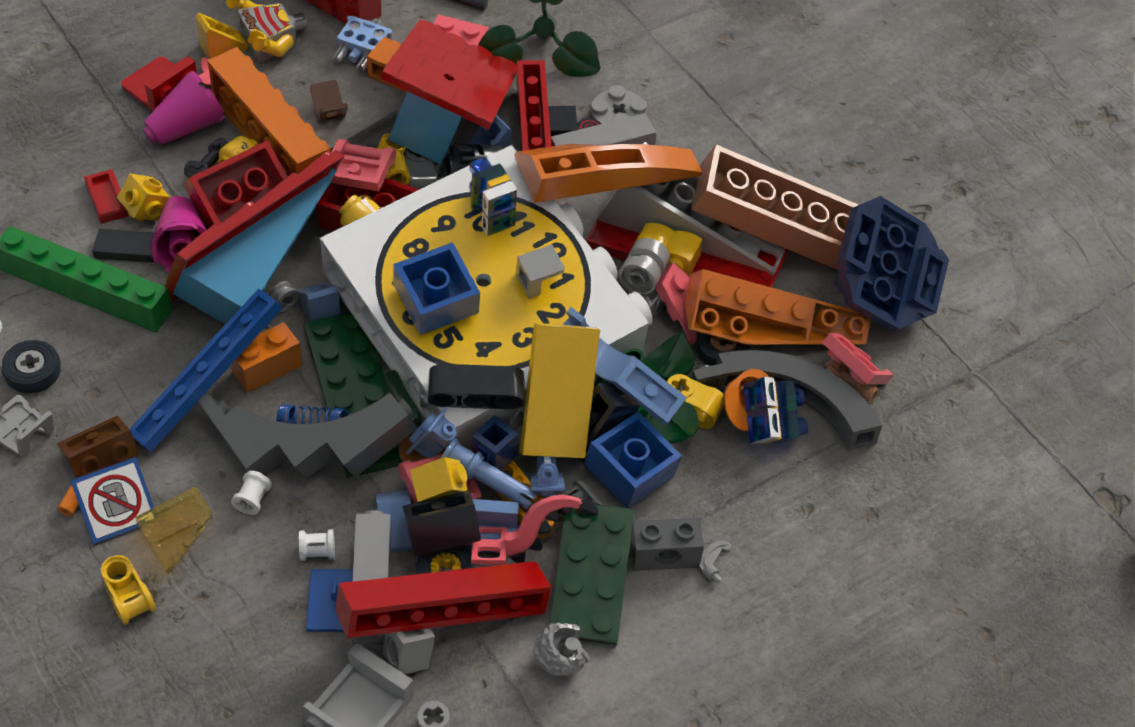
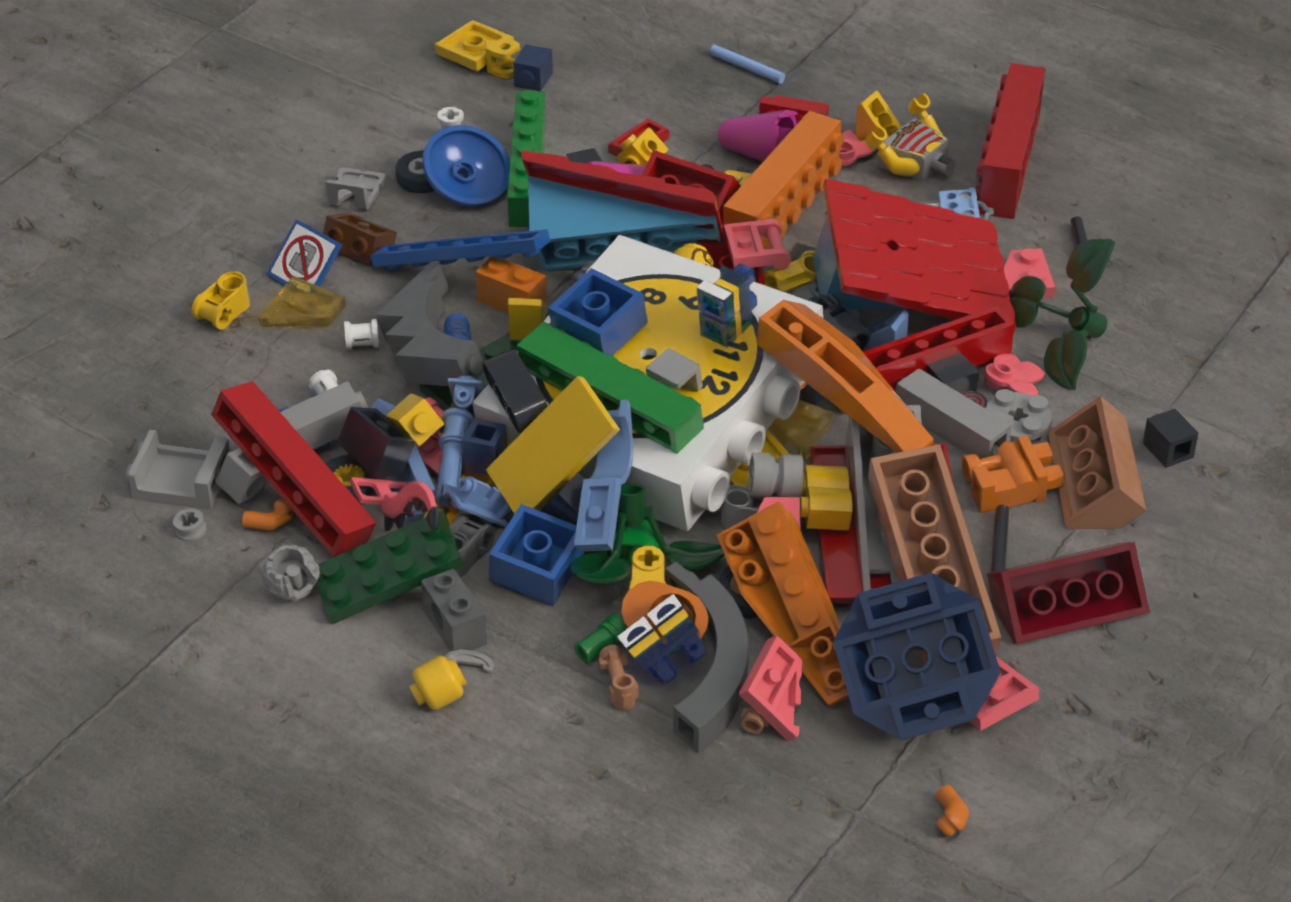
camera: 70 degrees right, 10 degrees down
(54, 83) = (747, 64): none -> light blue bar
(70, 324) = (469, 153): none -> blue dish
(328, 355) = (525, 316): none -> yellow slope
(464, 648) = (268, 521): none -> orange arm
(511, 320) = (655, 407): none -> green brick
(571, 92) = (1011, 374): none -> coral plate
(685, 130) = (1012, 475): none -> orange hips
(692, 41) = (1170, 438): none -> black brick
(703, 93) = (1098, 468): none -> nougat slope
(735, 449) = (605, 635): none -> green pin
(742, 584) = (437, 682): none -> yellow head
(802, 463) = (624, 687): none -> nougat bar
(821, 150) = (1069, 592): none -> dark red slope
(1000, 313) = (955, 811): none -> orange arm

